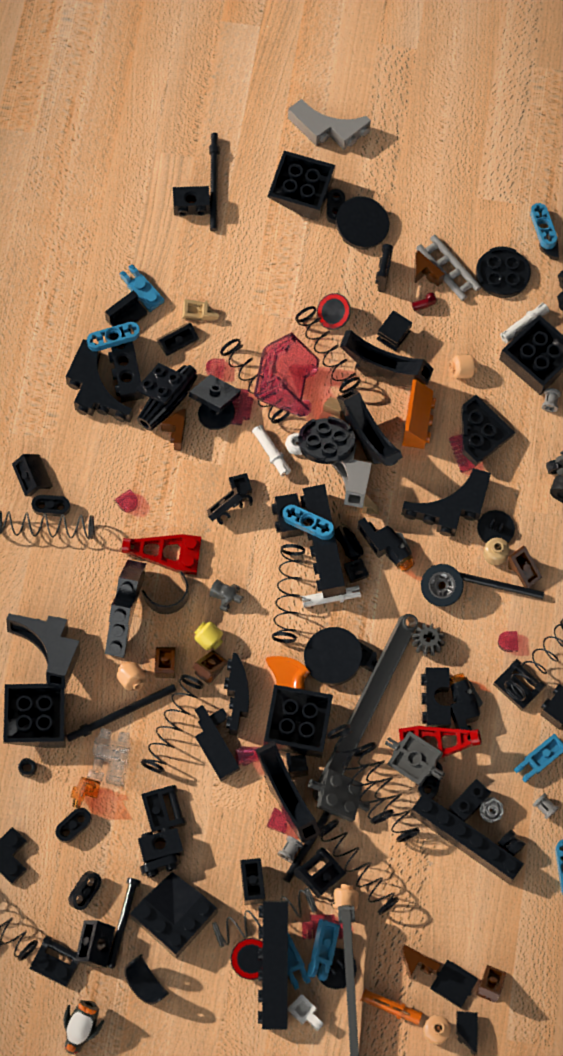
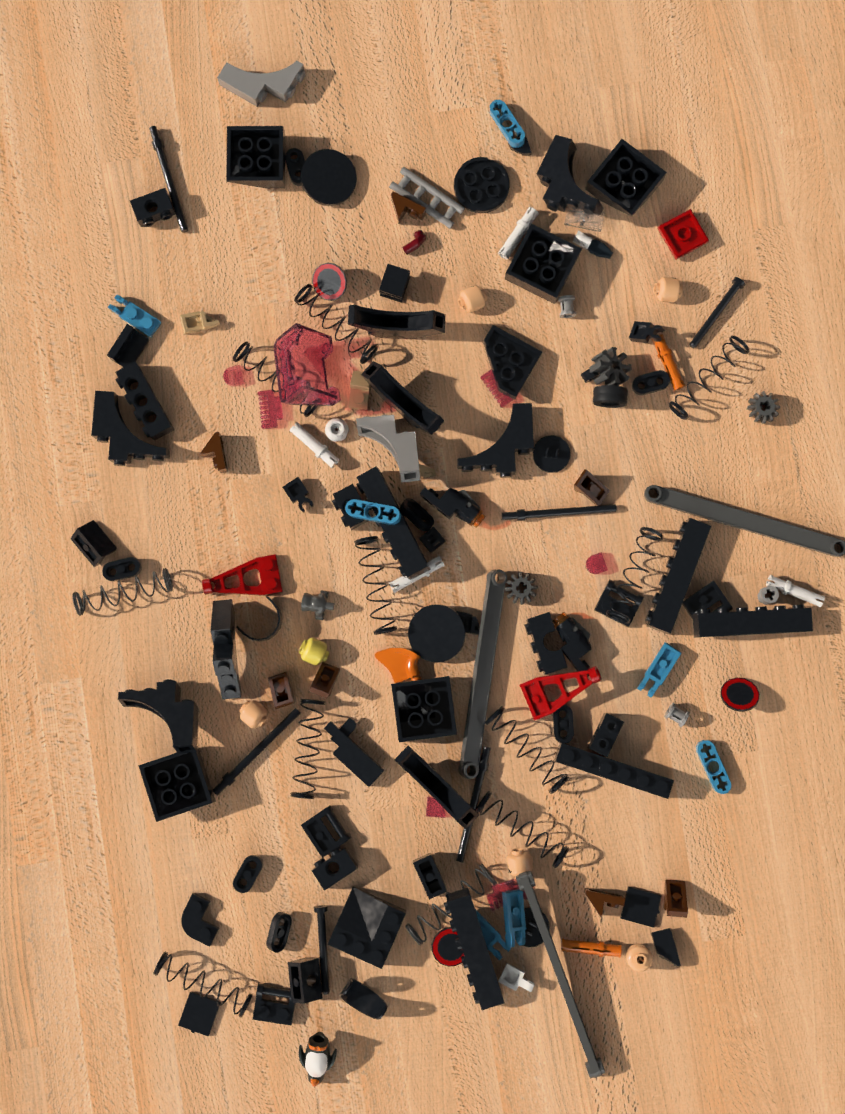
camera: 10 degrees left, 15 degrees up
(25, 773) = (185, 838): black axle -> none
(85, 787) = (246, 835): clear orange bracket -> none
(115, 753) = (264, 794): clear hips -> none
(127, 501) = (193, 541): clear pink tile -> none
(128, 337) = (138, 376): dark azure beam -> none
(165, 392) = (192, 421): black plate -> none
(167, 863) = (347, 882): black plate -> none
(177, 338) = (187, 357): black slope -> none
(214, 393) = (241, 405): black plate -> none
(215, 420) = (249, 422): black piece -> none
(221, 508) = (287, 516): black plate -> none
(237, 688) = (357, 691): black slope -> none
(246, 755) = (387, 755): clear pink cone -> none
(290, 849) = (454, 832): light grey bush -> none
(296, 765) = (435, 749): black panel -> none
(324, 877) = (494, 850): black plate -> none
(326, 440) = (364, 421): black tile -> none
(338, 795) = (484, 768): dark grey plate -> none
(380, 817) = (527, 782): black piece -> none
(384, 266) = (364, 217): black plate -> none
(415, 758) = (544, 712): dark grey plate -> none
(418, 416) = (445, 365): orange slope -> none
(445, 596) = (528, 536): black wheel -> none
(495, 814) = (633, 735): white plate -> none
(496, 551) = (559, 486): tan head -> none
(511, 843) = (656, 760): black wheel -> none

